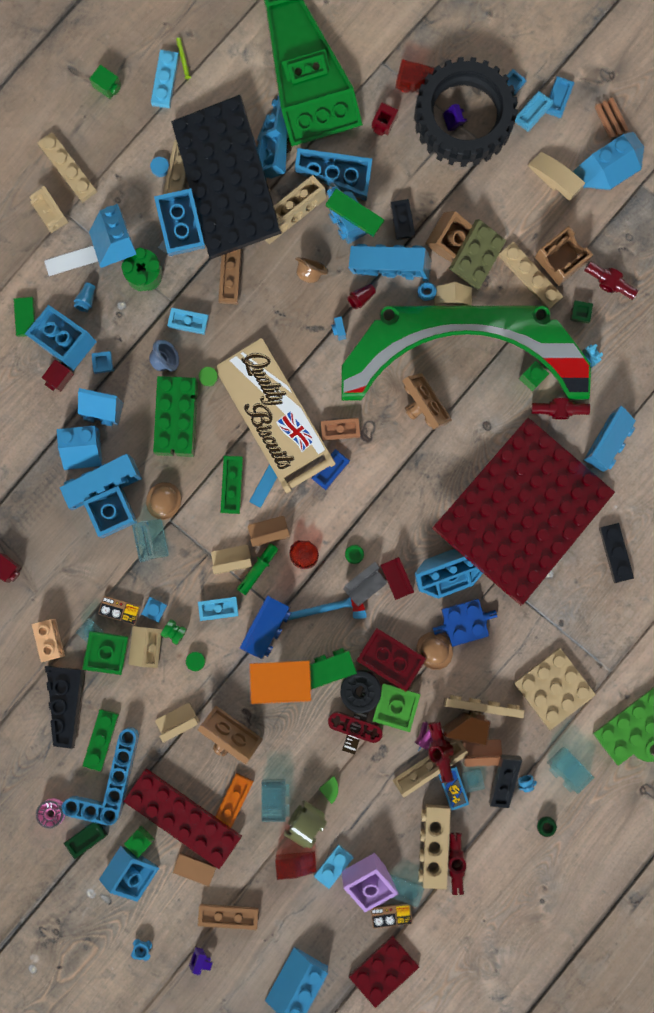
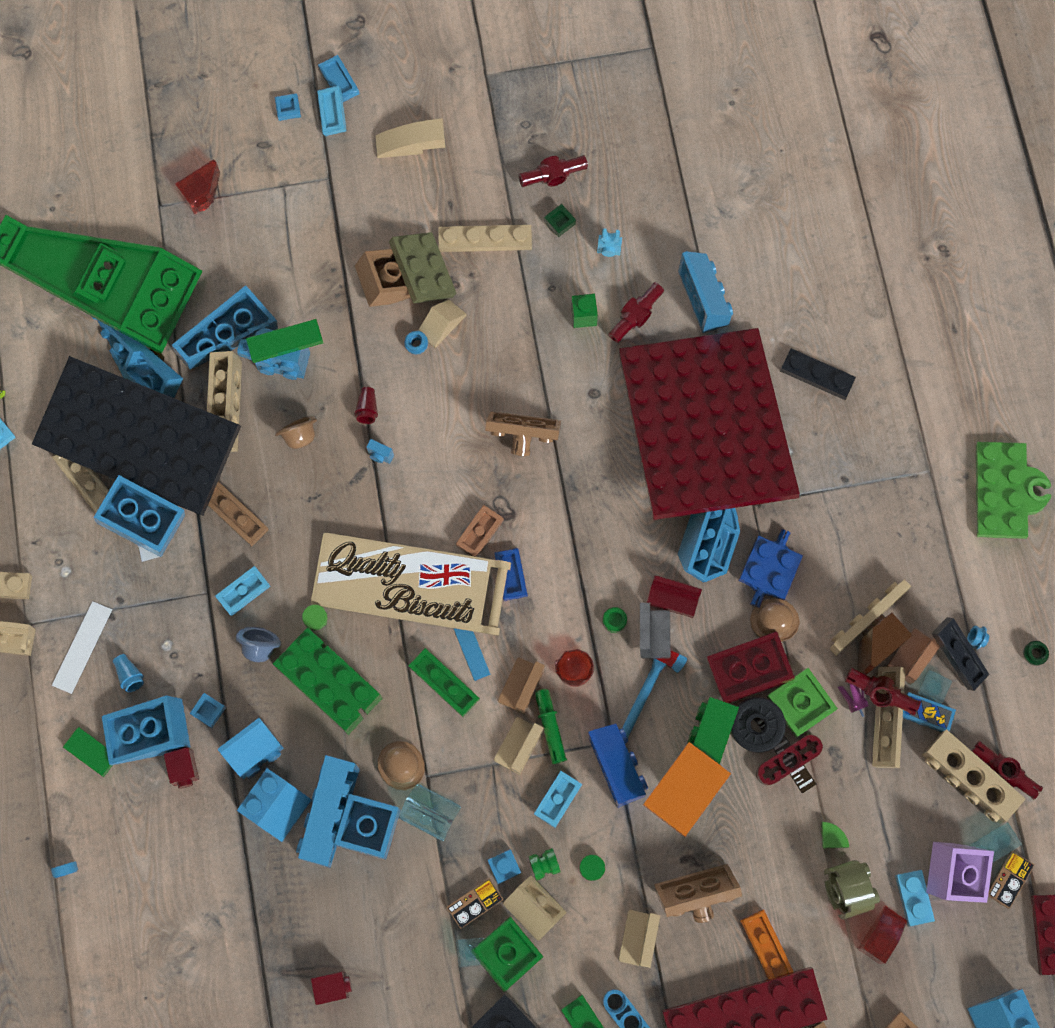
camera: 50 degrees left, 10 degrees down
(48, 640) = (444, 1003): light nougat brick -> none
(111, 237) = (92, 594): dark azure slope -> none
(142, 280) = (140, 585): green brick -> none
(159, 166) = (64, 493): dark azure tile -> none
(274, 800) = (800, 902): clear light blue brick -> none
(384, 114) = (214, 240): dark red brick -> none
(390, 261) = (357, 351): dark azure wedge -> none
(402, 219) = (326, 308): black plate -> none
(419, 324) = (442, 376): green panel -> none
(453, 117) = (272, 184): dark purple tile -> none
(465, 74) = (268, 126): black tyre -> none
(554, 688) = (904, 536): tan plate -> none
(563, 256) = (493, 193): medium nougat piece -> none
(572, 772) = (997, 585): clear light blue brick -> none
(605, 104) = (402, 47): nougat tile -> none
(612, 163) = (444, 82): dark azure wedge -> none

